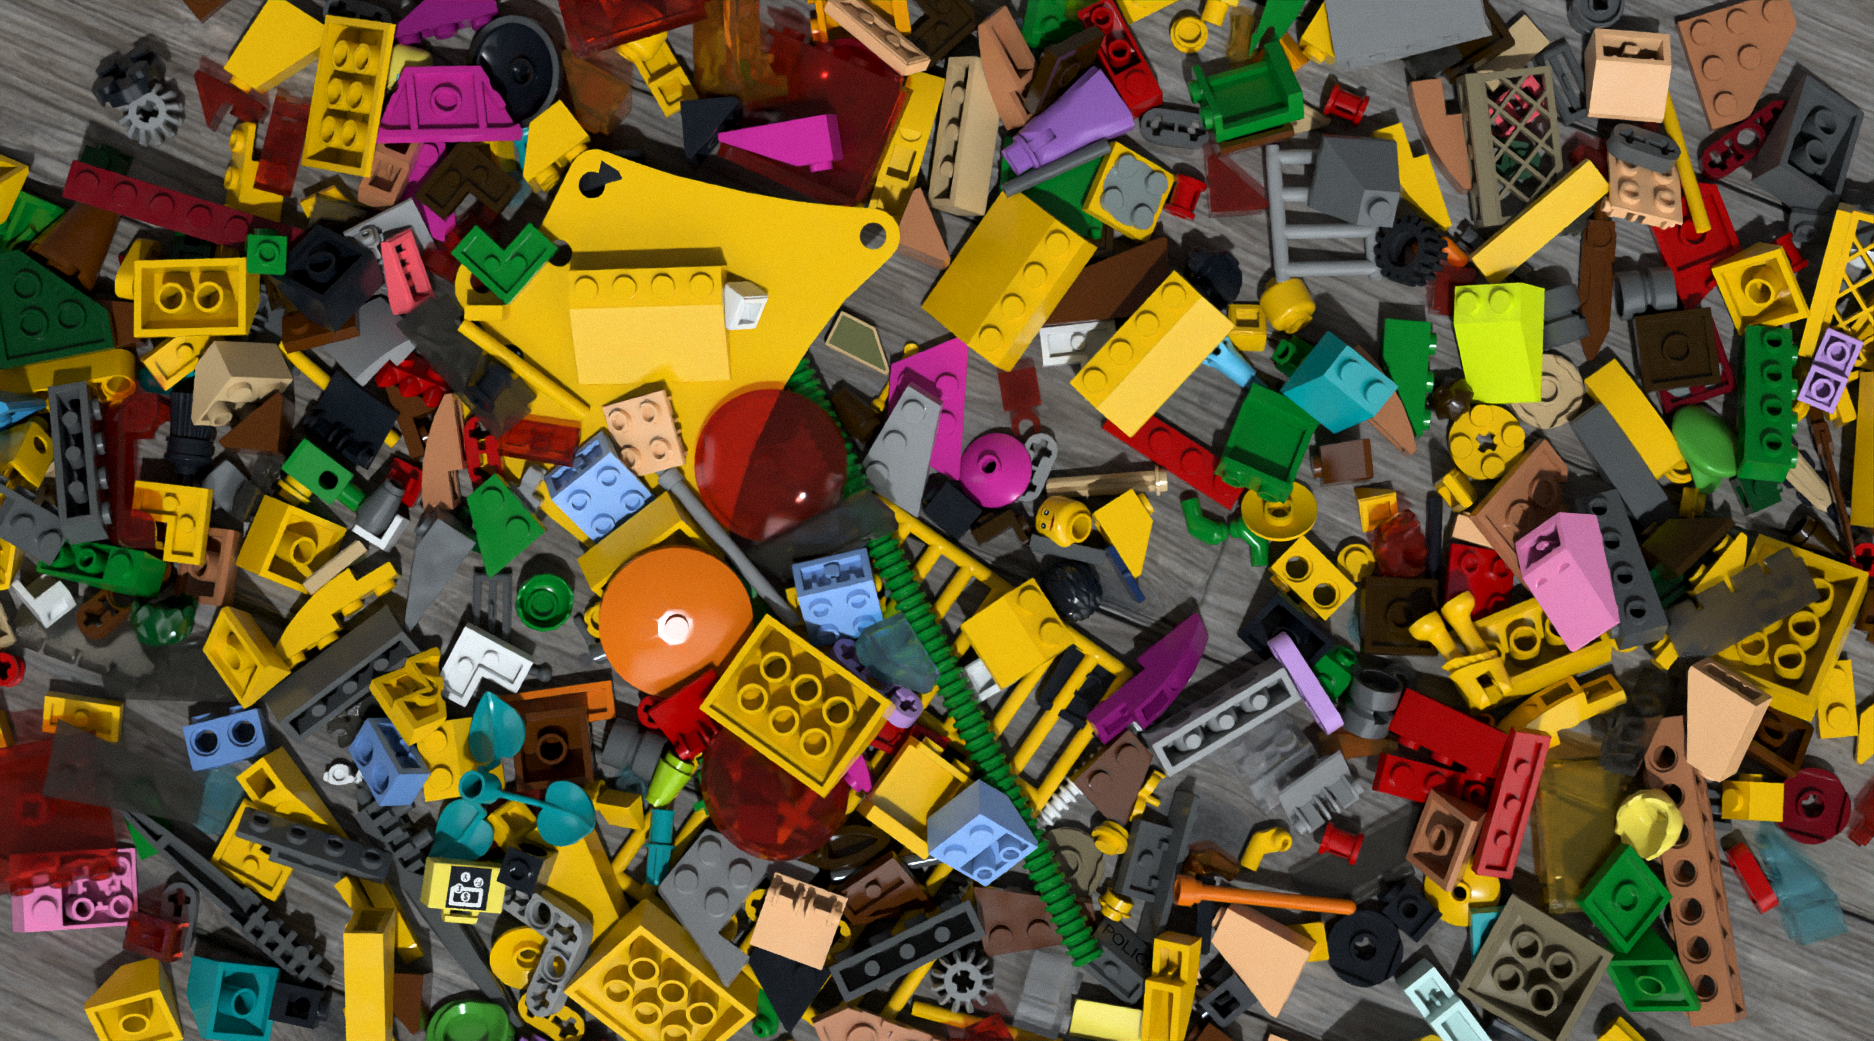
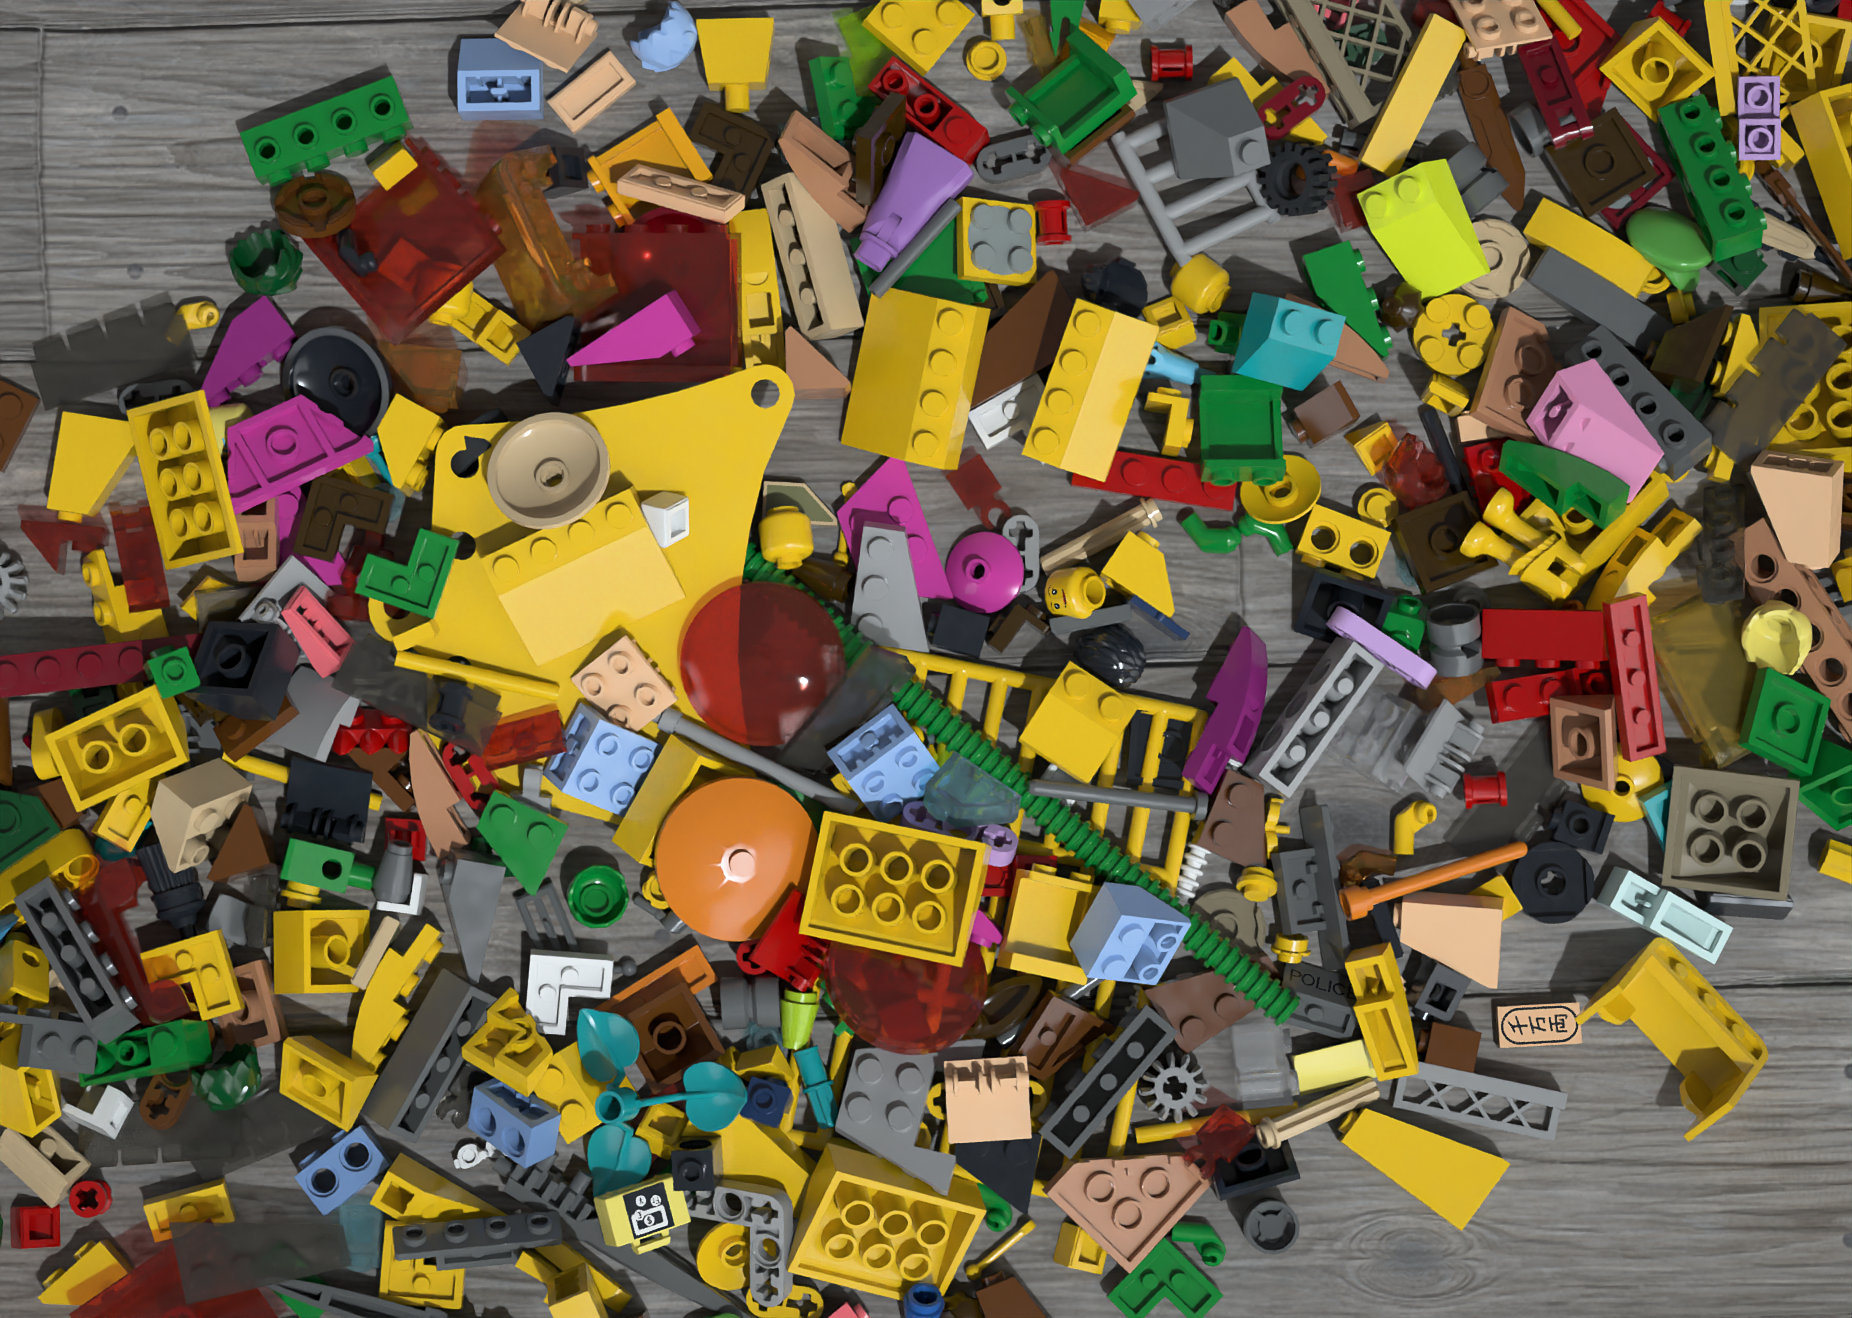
camera: 25 degrees left, 0 degrees up
(610, 839) = (767, 1101): none -> dark blue bracket
(657, 203) = (538, 453): none -> tan dish
(838, 366) = (785, 537): none -> yellow head
(1087, 747) = (1195, 805): none -> dark grey bar
(1214, 418) = (1178, 426): none -> yellow bracket
(1432, 196) = (1296, 115): none -> dark red beam
(1525, 610) = (1565, 481): none -> green slope
(1663, 271) = (1554, 91): none -> dark red plate

